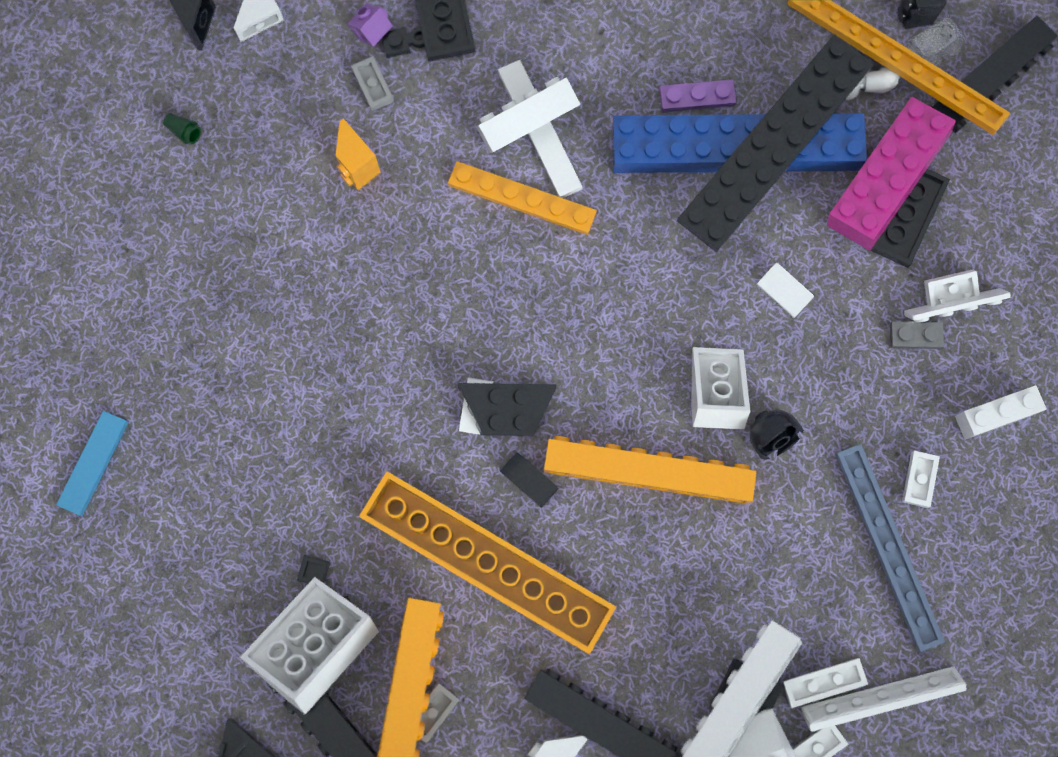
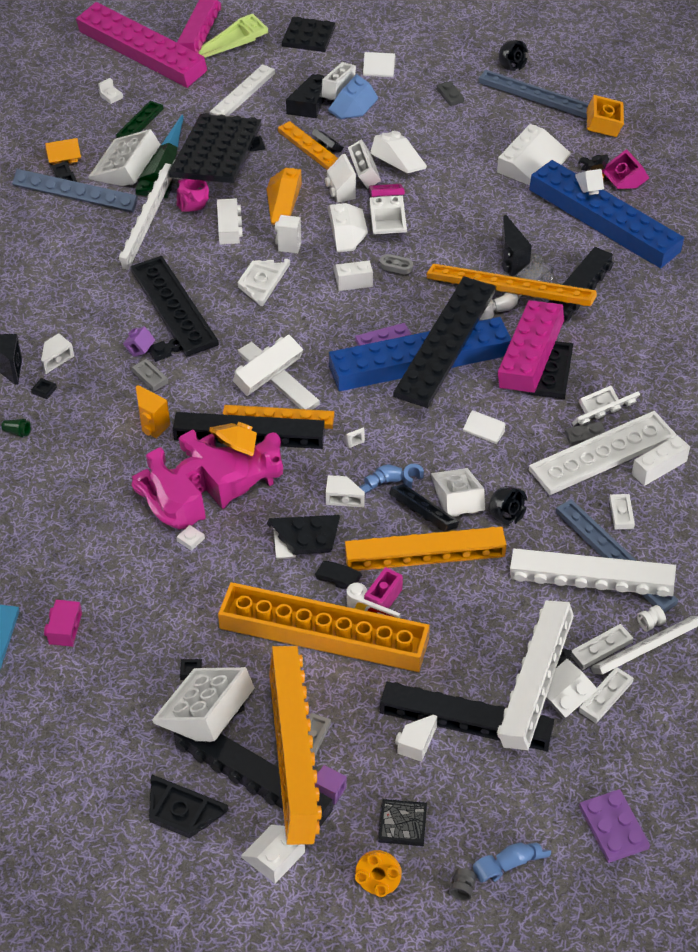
camera: 15 degrees left, 30 degrees down
(174, 462) = (63, 623): none -> dark pink brick
(232, 68) = (43, 388): none -> black tile
(361, 367) = (190, 537): none -> white plate
(425, 284) = (220, 471): none -> dark pink animal
(446, 248) = (238, 437): none -> light orange wedge
(477, 214) = (292, 432): none -> black brick
(541, 528) = (356, 600): none -> white door
(570, 350) = (343, 492): none -> white slope
(576, 529) = (385, 588): none -> dark pink brick
(610, 261) = (354, 438): none -> white slope
(635, 336) = (391, 473): none -> medium blue piece
(666, 406) = (424, 507): none -> black plate
(851, 575) = (593, 572): none -> white brick
(901, 659) = (651, 618): none -> white wheel
(928, 375) = (601, 452): none -> white plate

